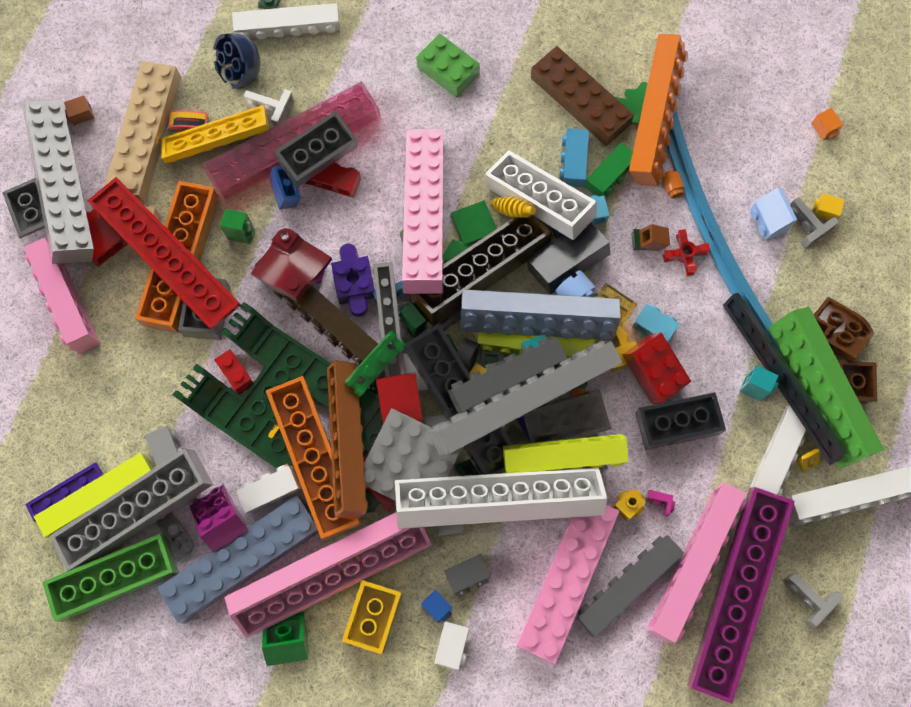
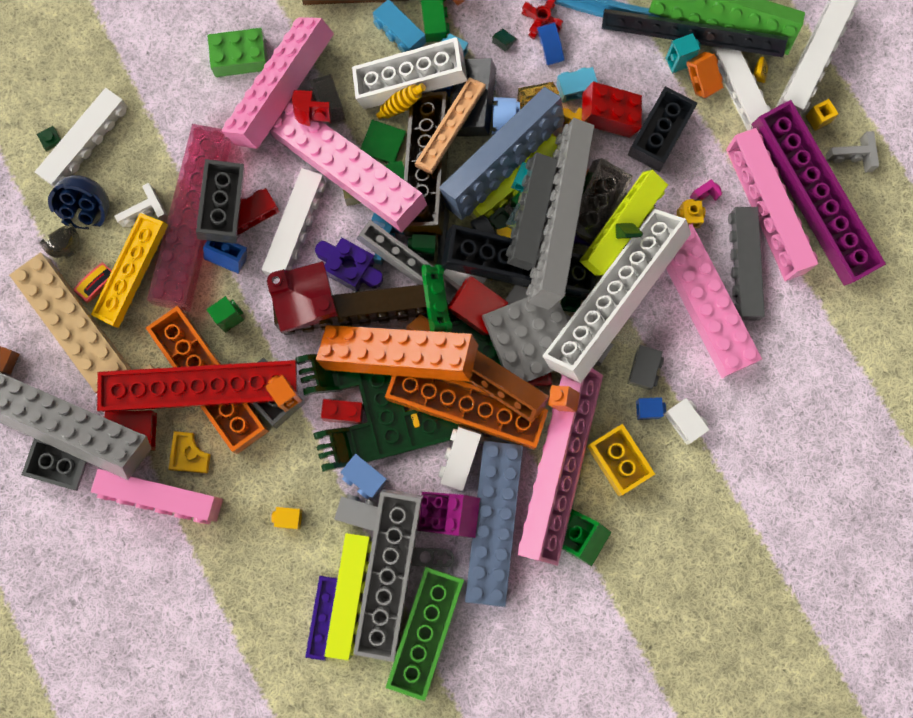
camera: 50 degrees left, 5 degrees up
(112, 291) = (186, 455): none -> yellow tile
(120, 401) = (287, 518): none -> yellow brick
(193, 429) = (364, 477): none -> medium blue brick
(196, 74) = (61, 242): none -> clear smoke cylinder
(201, 314) = (283, 393): none -> orange brick
(306, 371) = (398, 352): none -> orange brick
(351, 215) = (294, 222): none -> white brick
(375, 526) = (564, 398): none -> orange brick
(441, 147) = (308, 110): none -> red brick
(447, 110) = (277, 81): none -> bright pink brick
(466, 156) = (325, 91): none -> clear smoke brick
(523, 257) = (450, 125): none -> light nougat tile
(557, 461) = (627, 230): none -> dark green slope
(654, 237) = (512, 27): dark orange brick -> none
(669, 277) = (551, 43): none -> blue slope
(758, 416) = (705, 74): none -> orange brick
(816, 541) = (821, 114): none -> yellow brick

